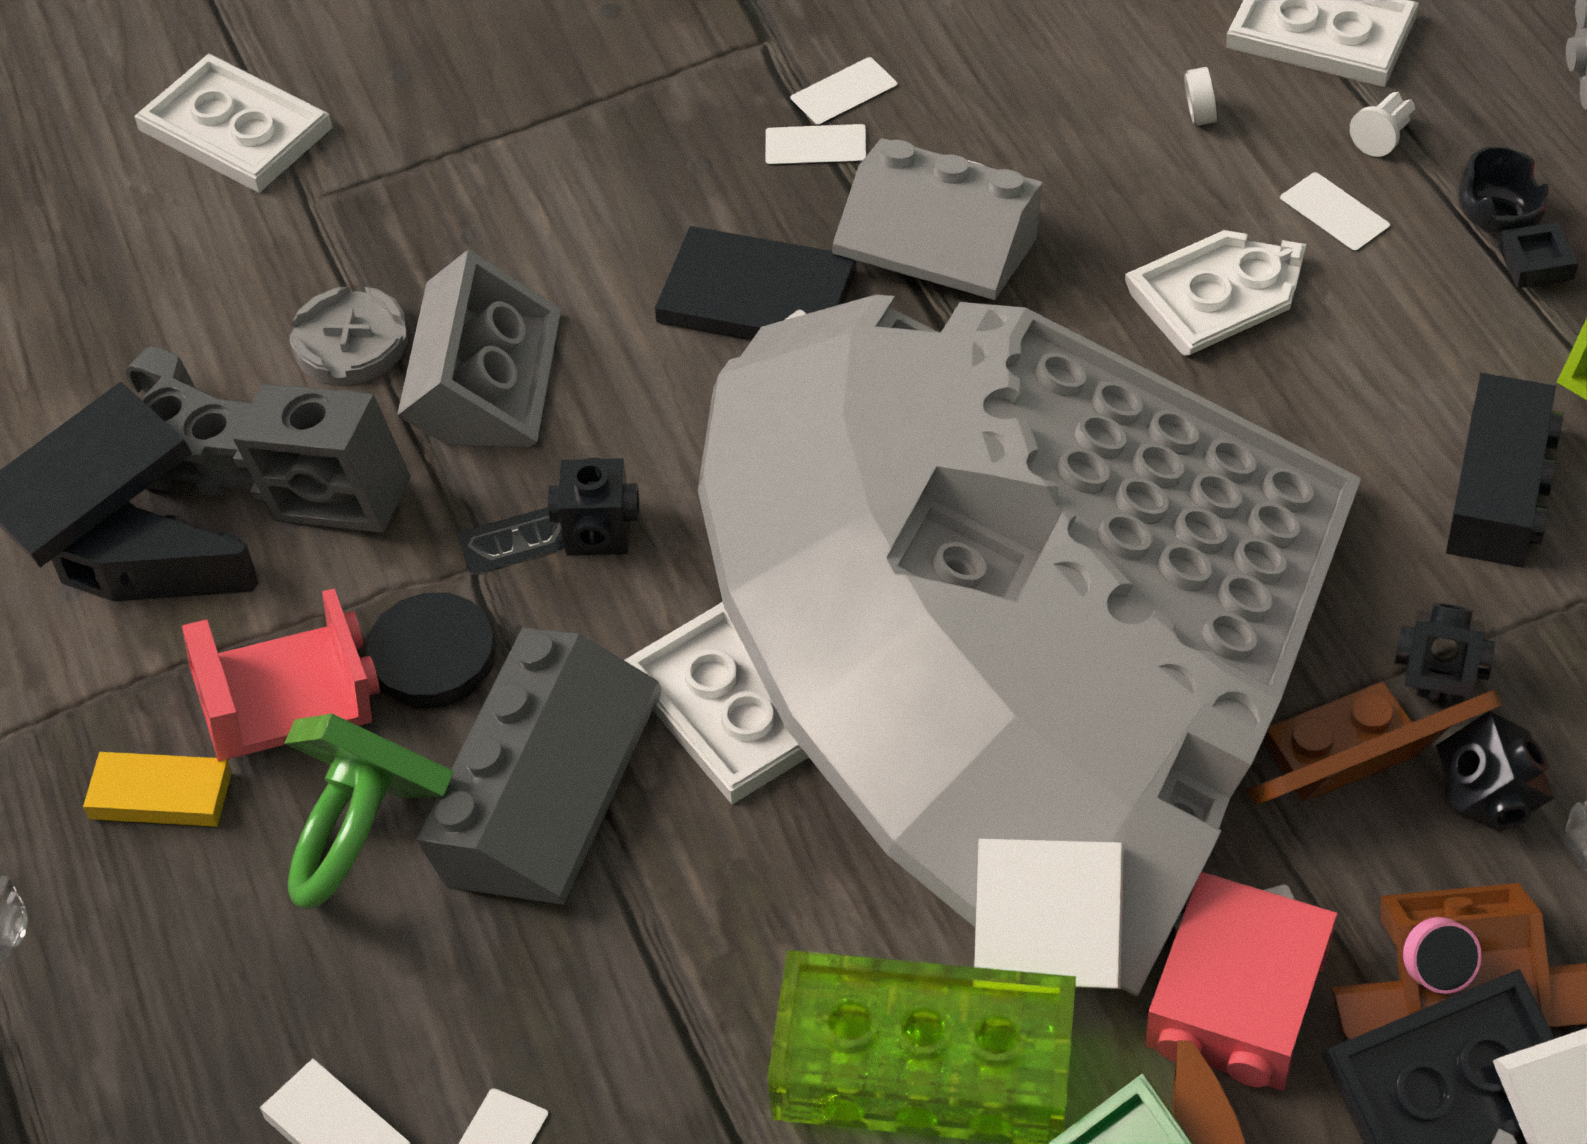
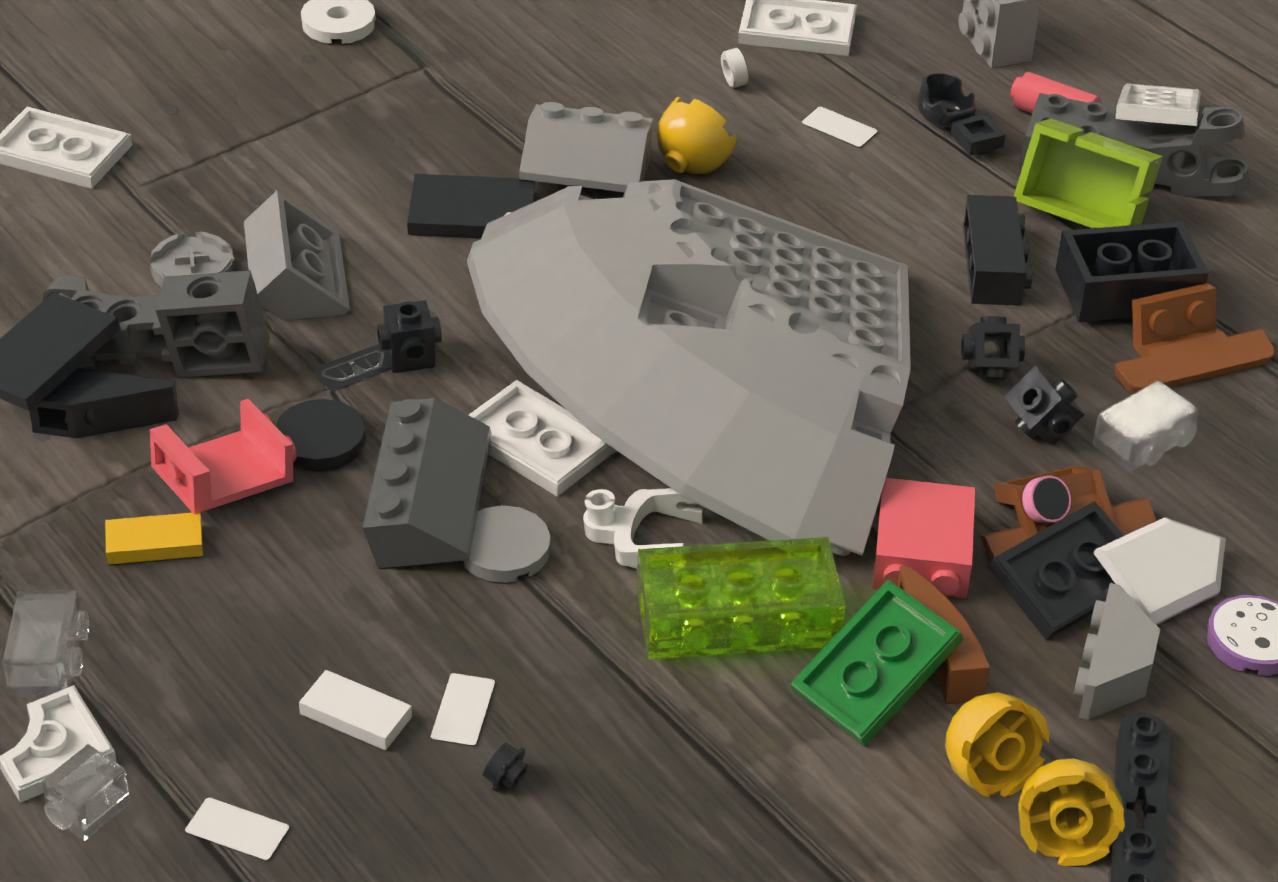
camera: 20 degrees left, 10 degrees down
(360, 768) = (310, 487): bright green tile -> none
(632, 881) = (508, 544): none -> light grey tile
(798, 874) = (618, 524): none -> white piece
(815, 144) = (481, 122): white sticker -> none
(843, 90) = (489, 90): white sticker -> none
(1051, 909) = (800, 501): white tile -> none
(1097, 219) = (694, 137): none -> yellow cylinder
(1217, 288) = (778, 174): white tile -> none
(1353, 741) = (956, 402): dark orange plate -> none
(1378, 128) = (854, 74): white piece -> none

